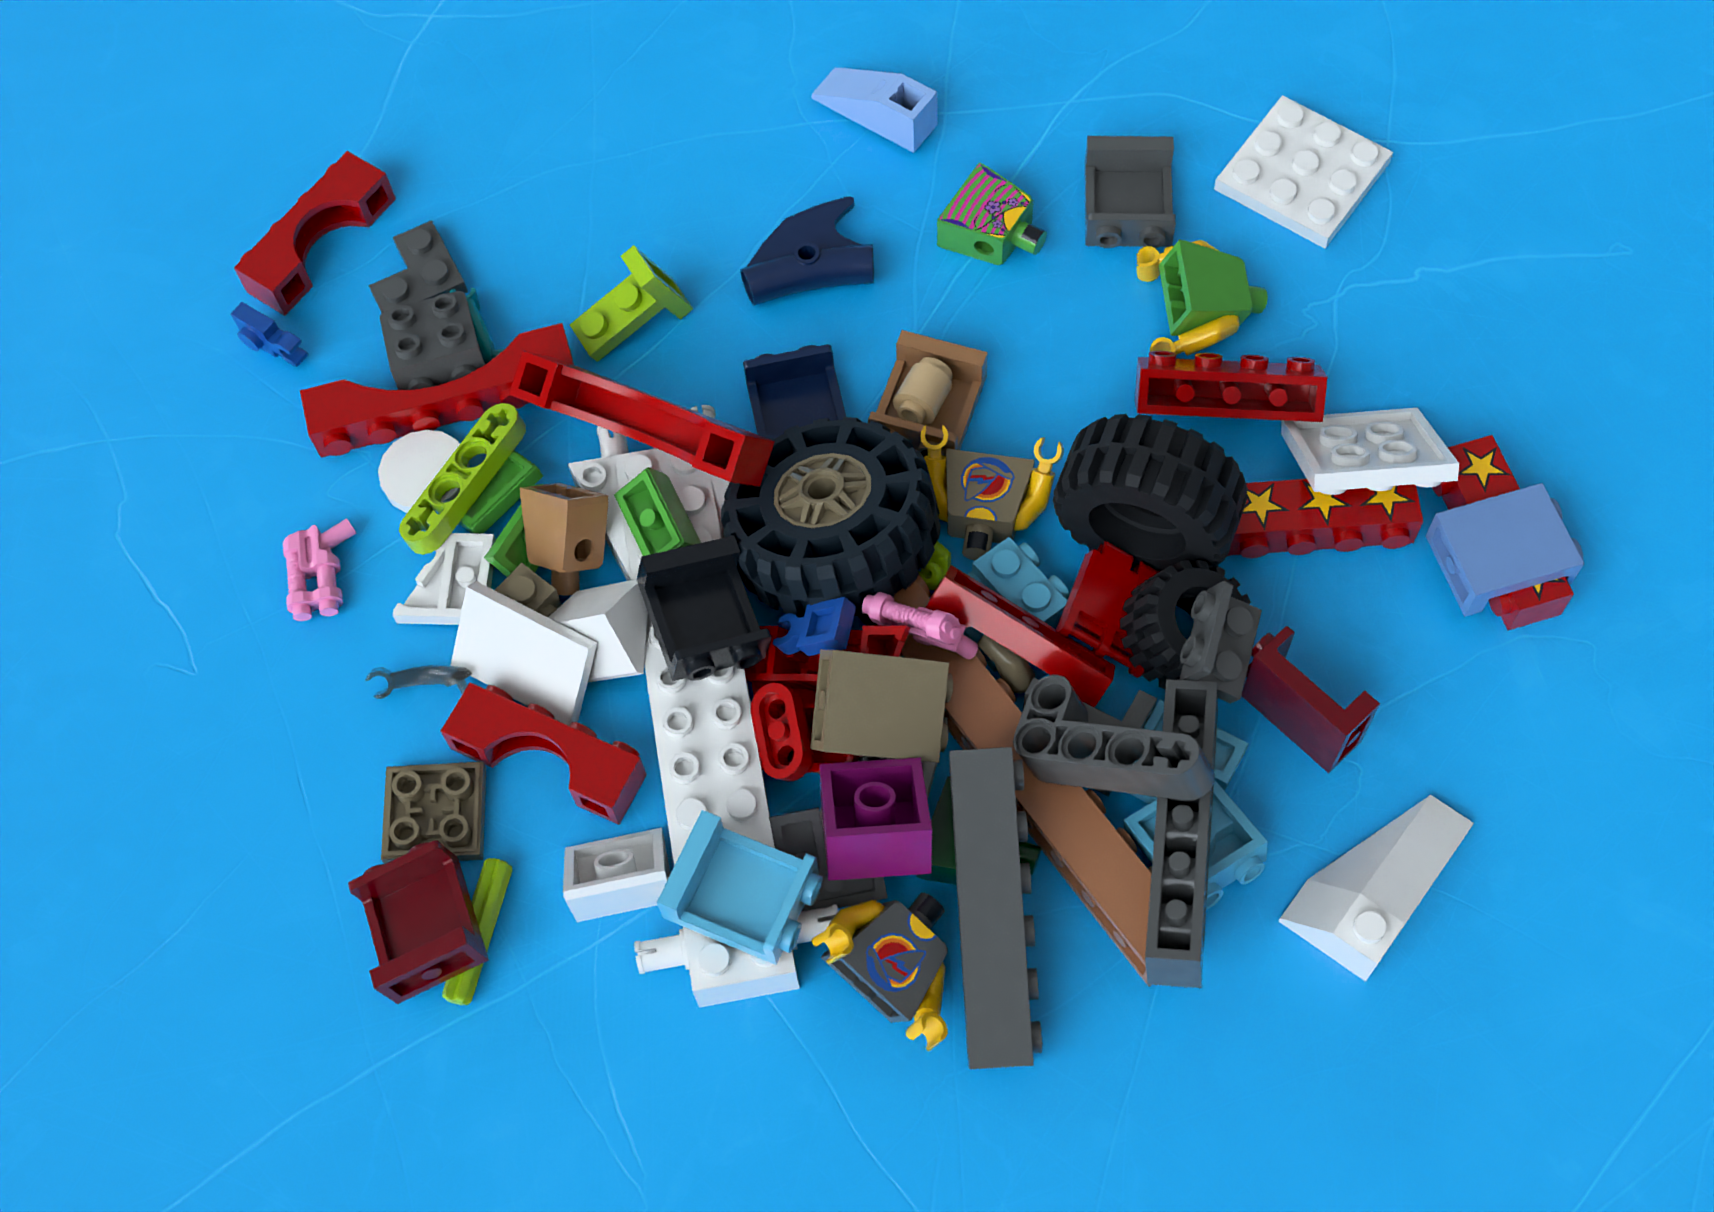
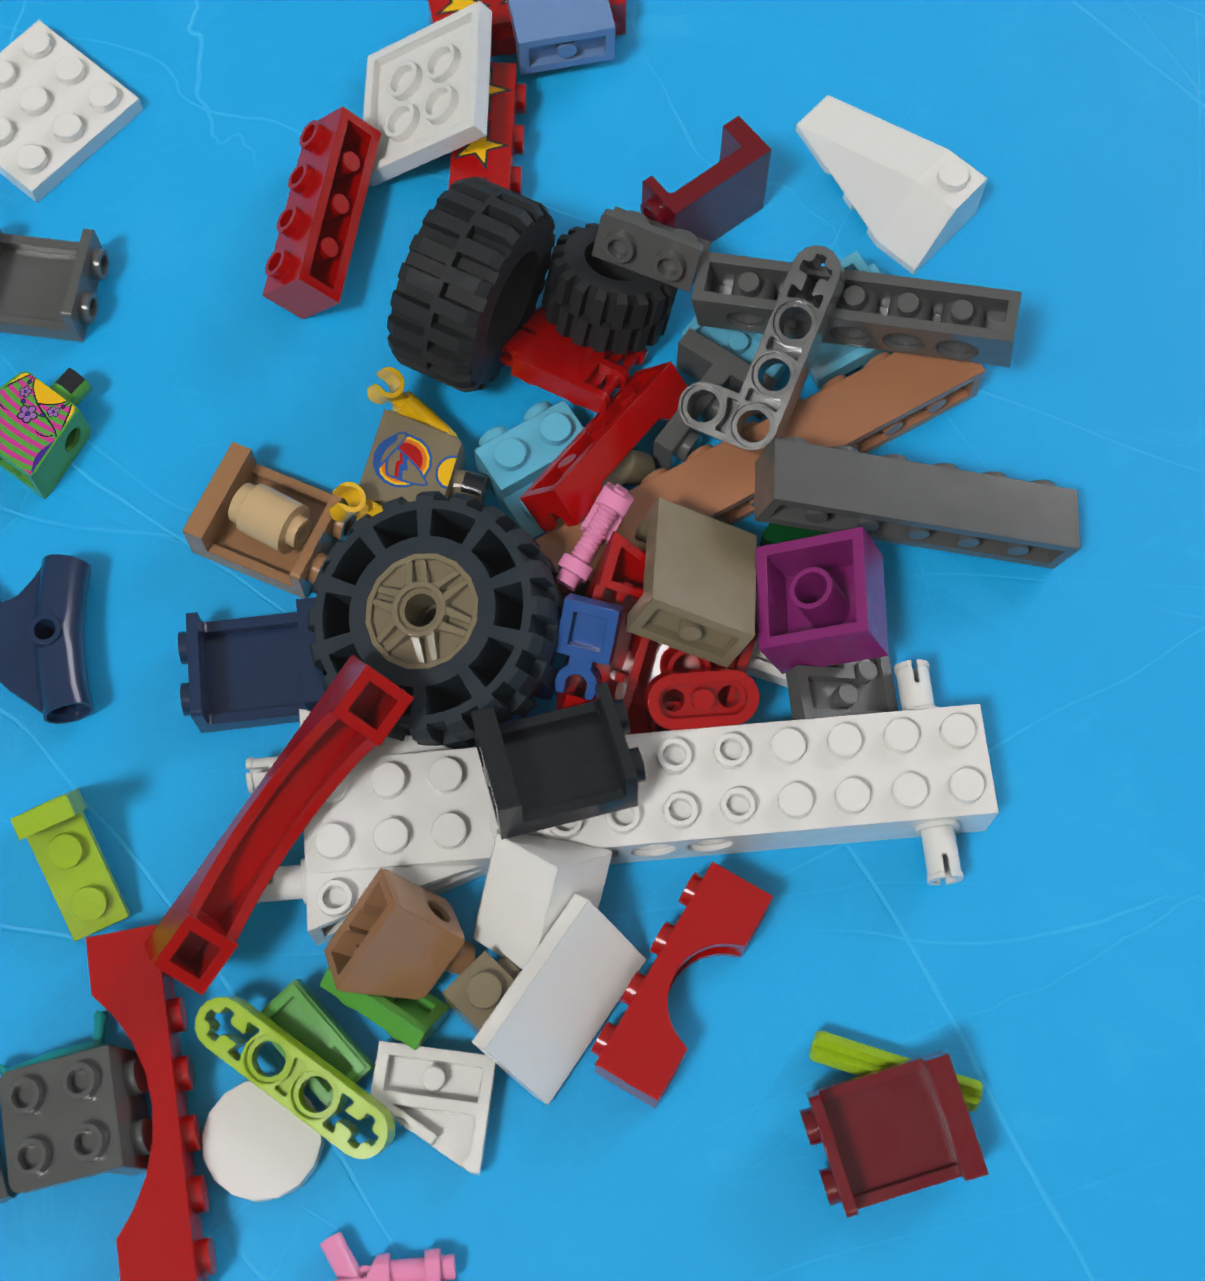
camera: 90 degrees left, 5 degrees up
(421, 676) = (565, 1184): clear smoke piece -> none
(433, 805) = (742, 1126): dark tan tile -> none
(615, 874) = (837, 903): white slope -> none
(655, 513) = (416, 816): bright green slope -> none
(739, 890) = (901, 740): medium azure panel -> none
(892, 960) = (962, 614): torso -> none
(1202, 293) = (190, 219): bright green torso -> none

